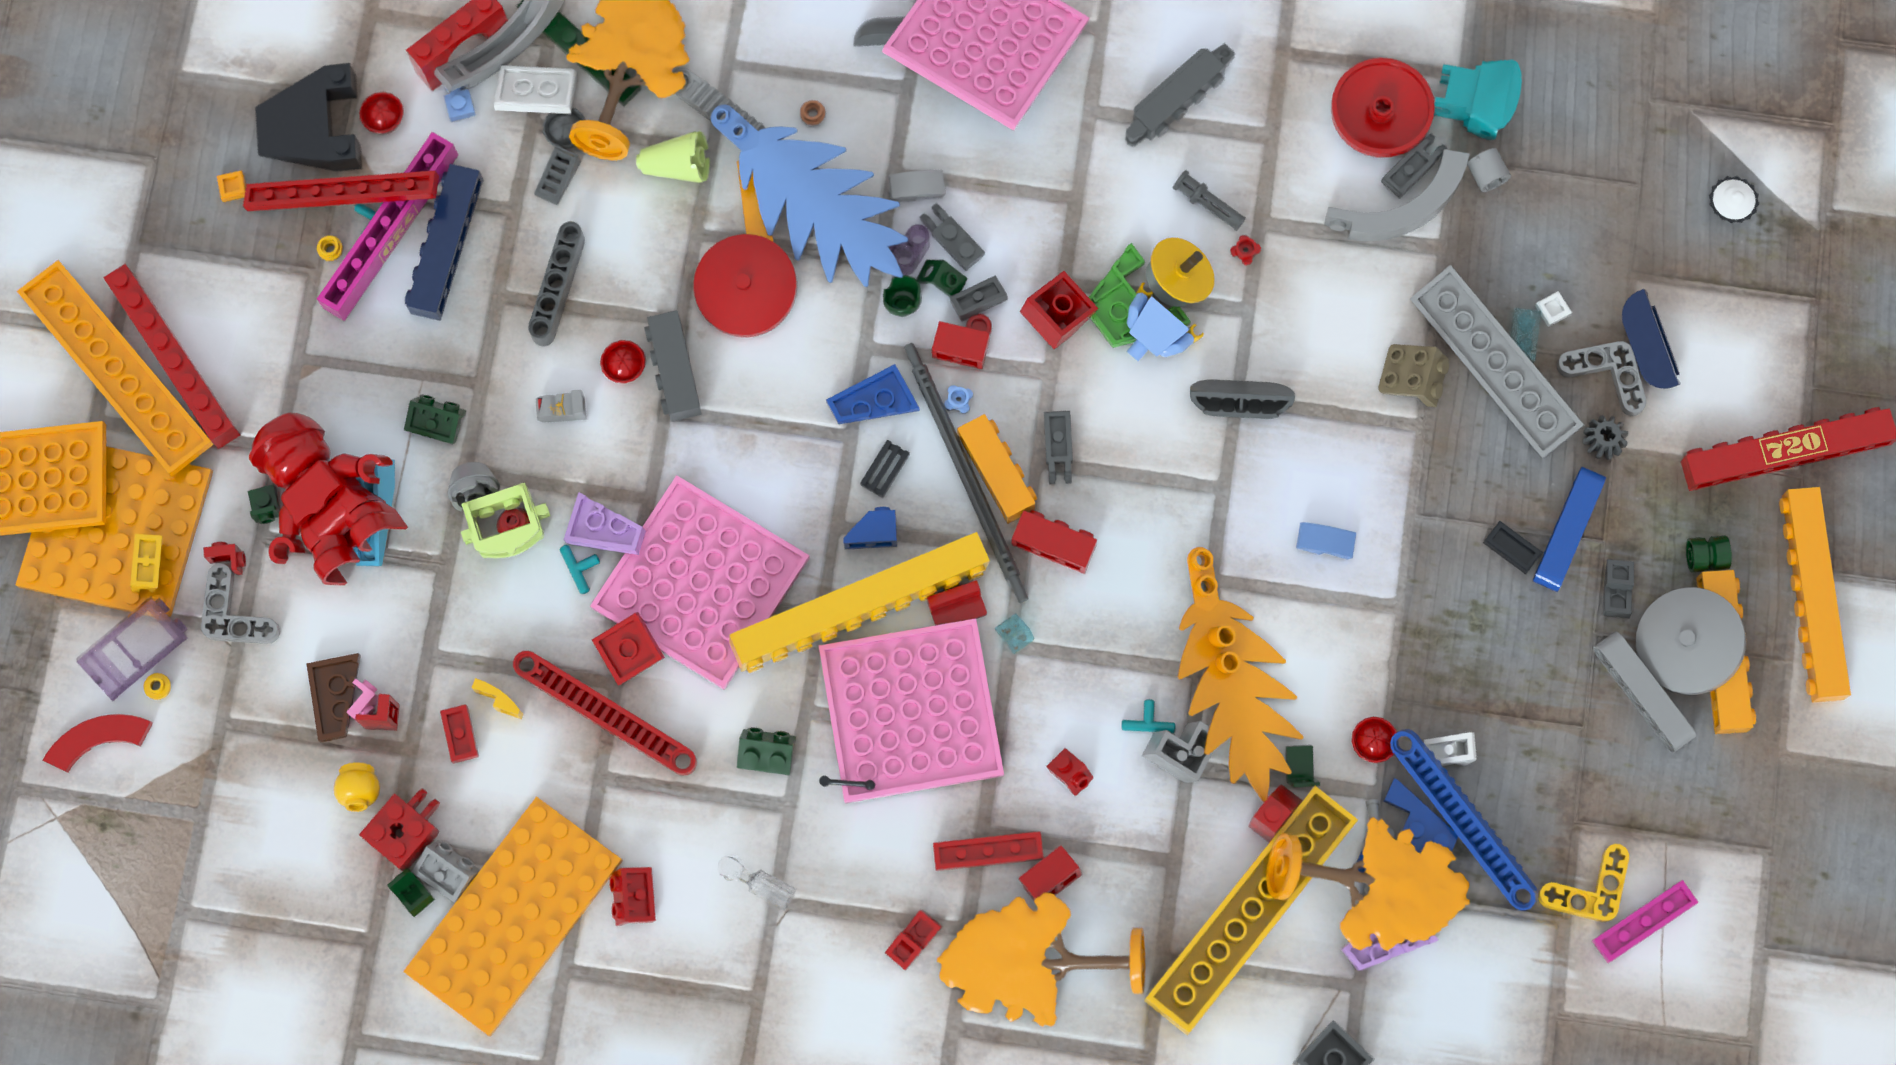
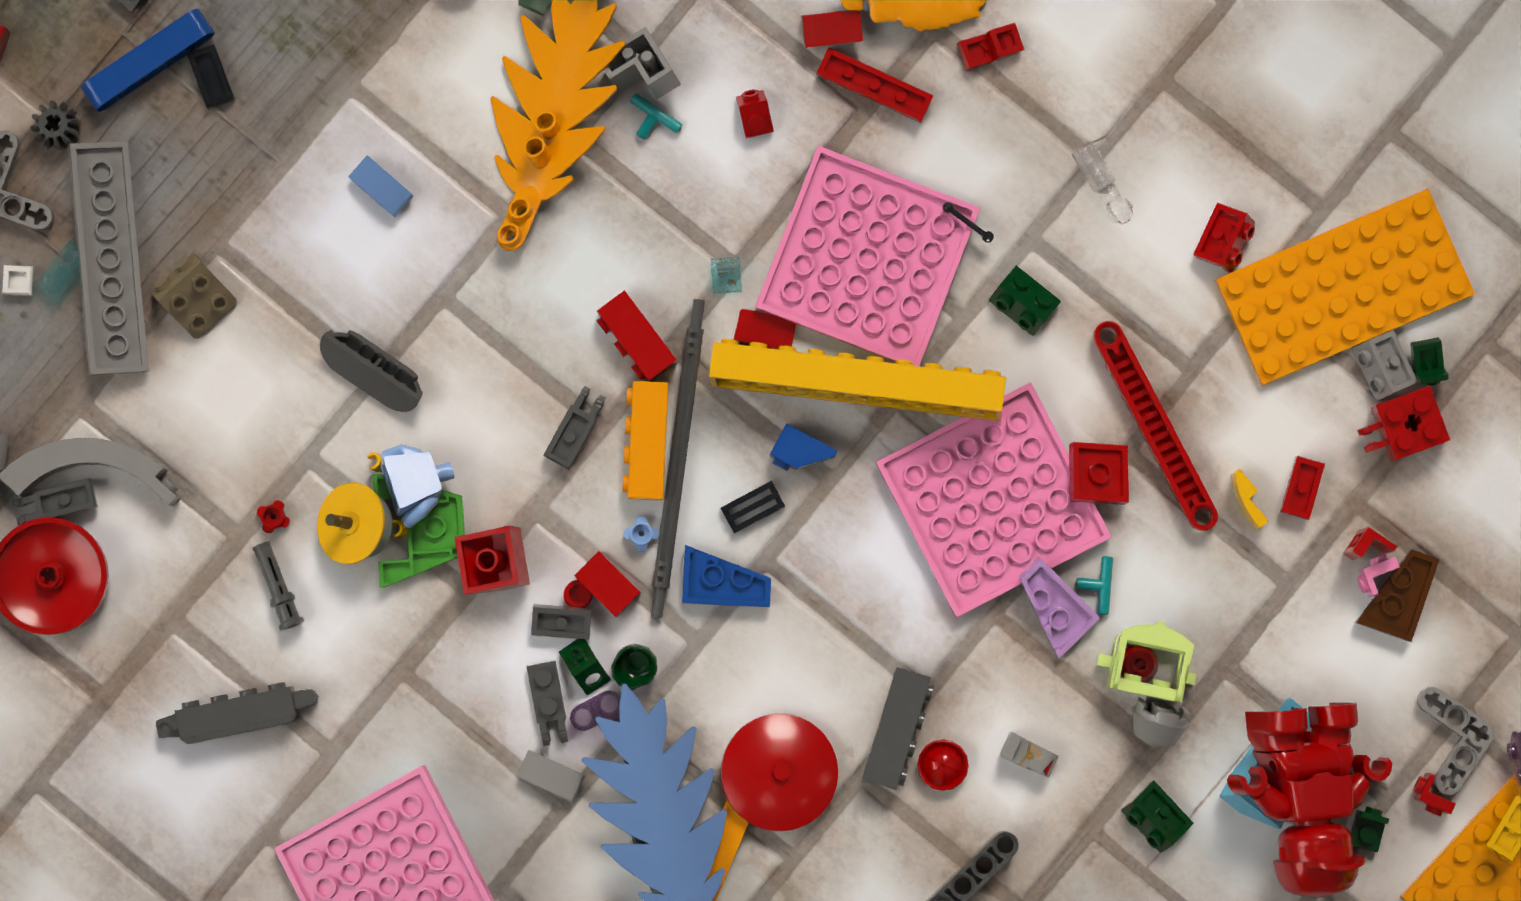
camera: 155 degrees left, 10 degrees up
(356, 786) = (1427, 490): yellow piece -> none

